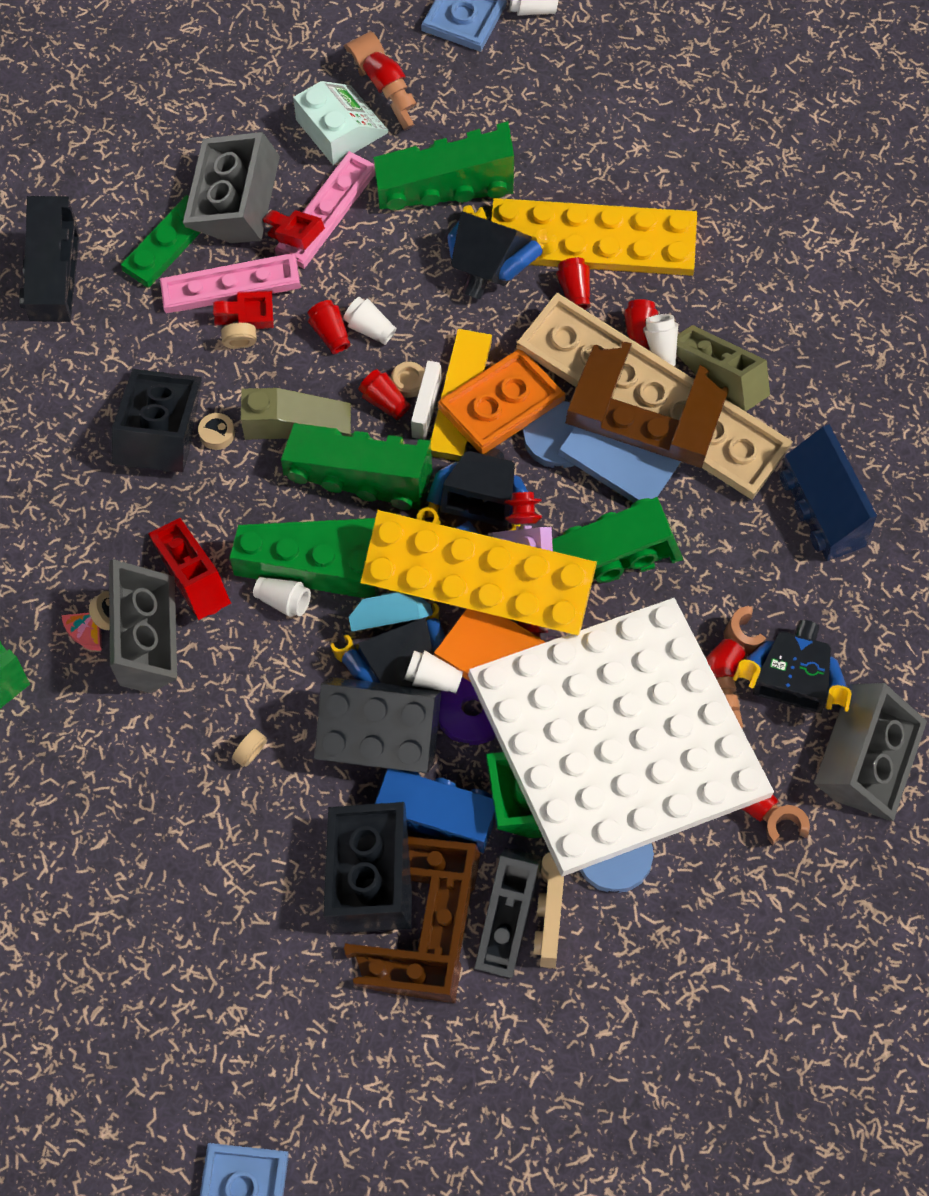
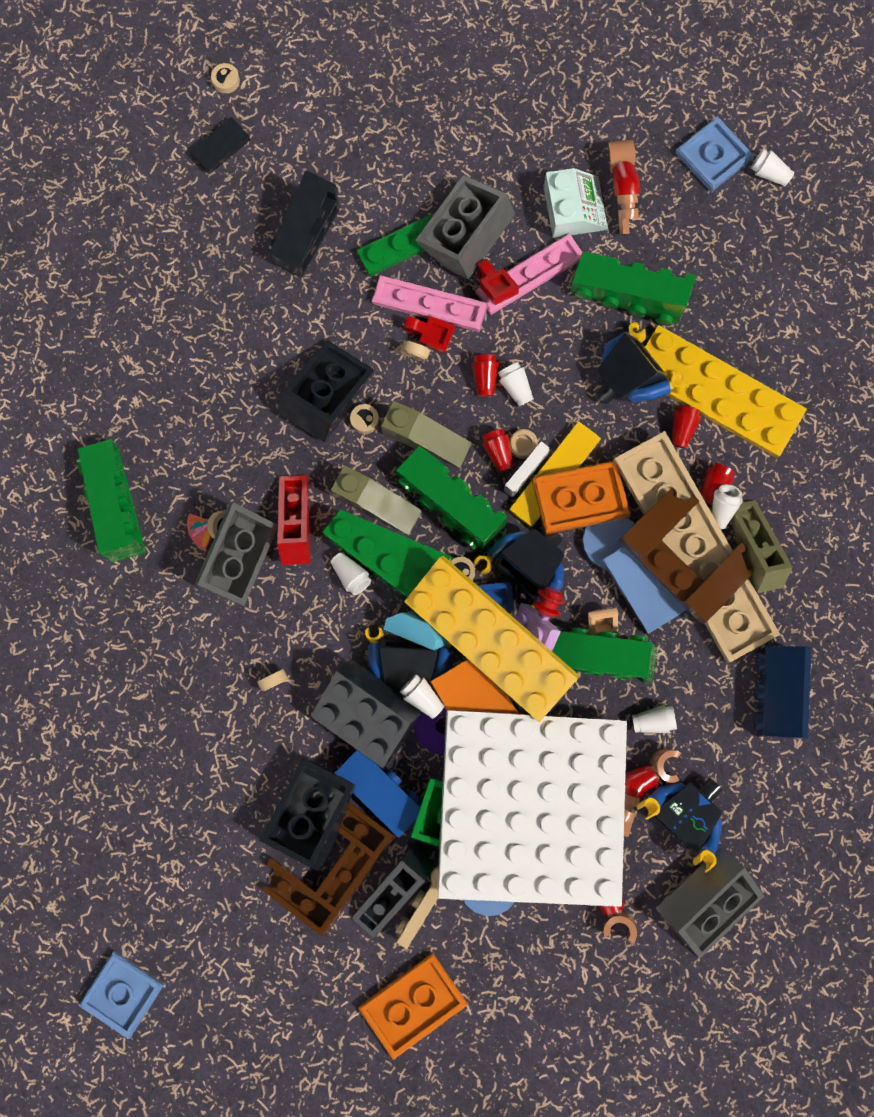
camera: 25 degrees right, 15 degrees up
(263, 502) = (375, 500): none -> slope
(591, 510) = (603, 620): none -> light nougat slope
(596, 1030) = (413, 1005): none -> orange tile
(707, 591) = (656, 720): none -> white cone

